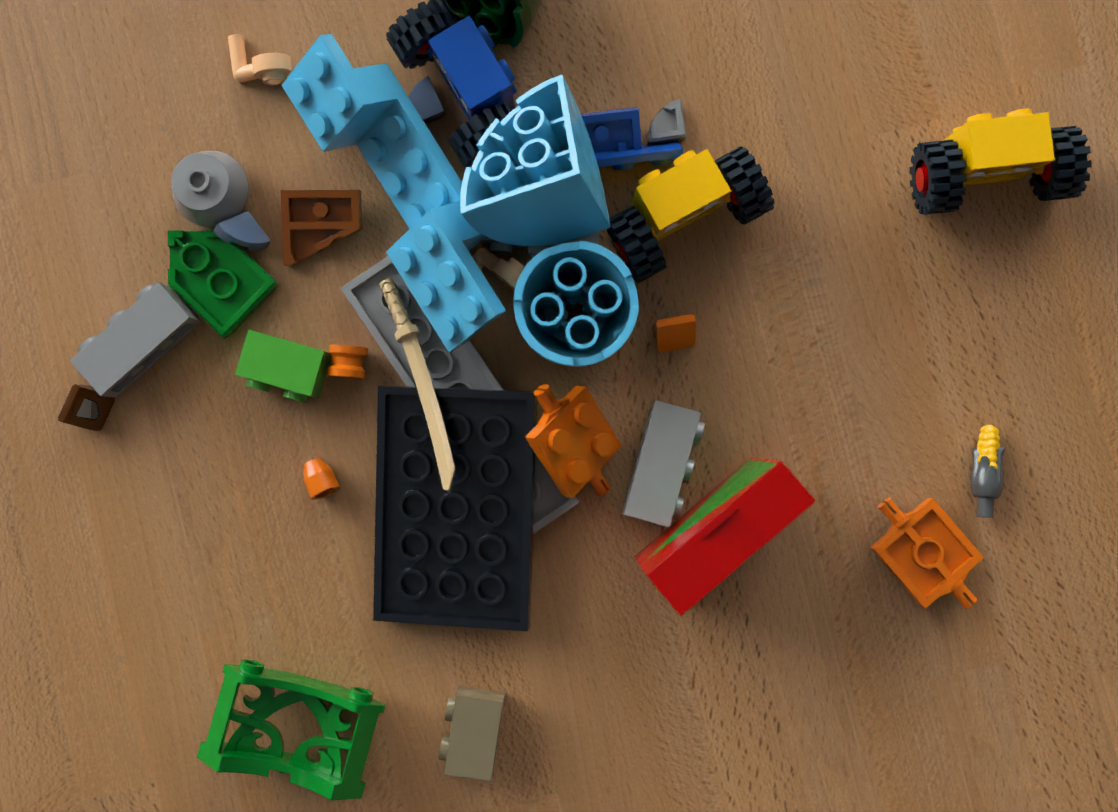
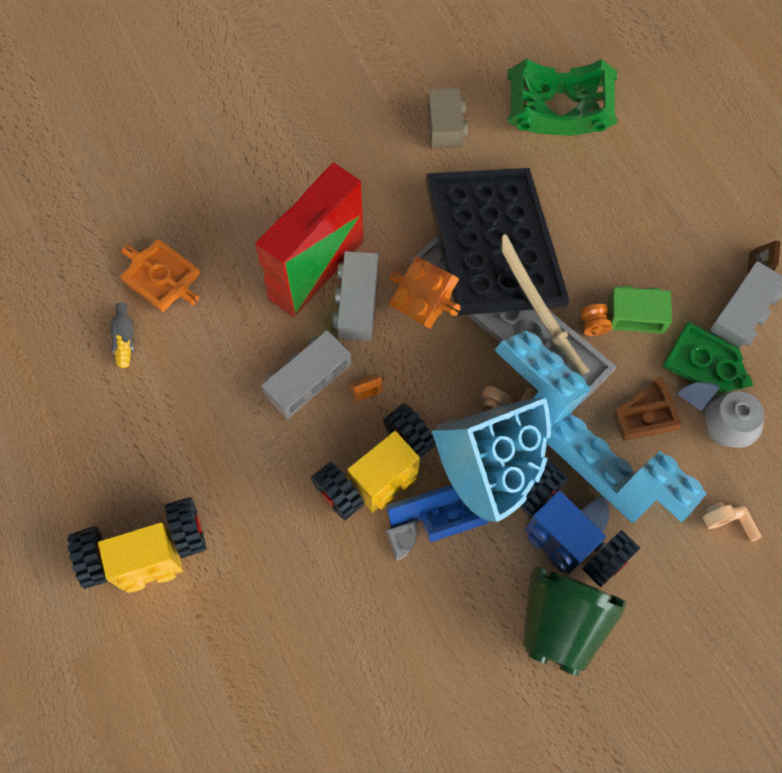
camera: 165 degrees right, 20 degrees down
(319, 479) = (591, 245): orange hose -> none
(569, 276) = (445, 352): medium azure cone -> none
(752, 362) = (306, 374): none -> light grey brick

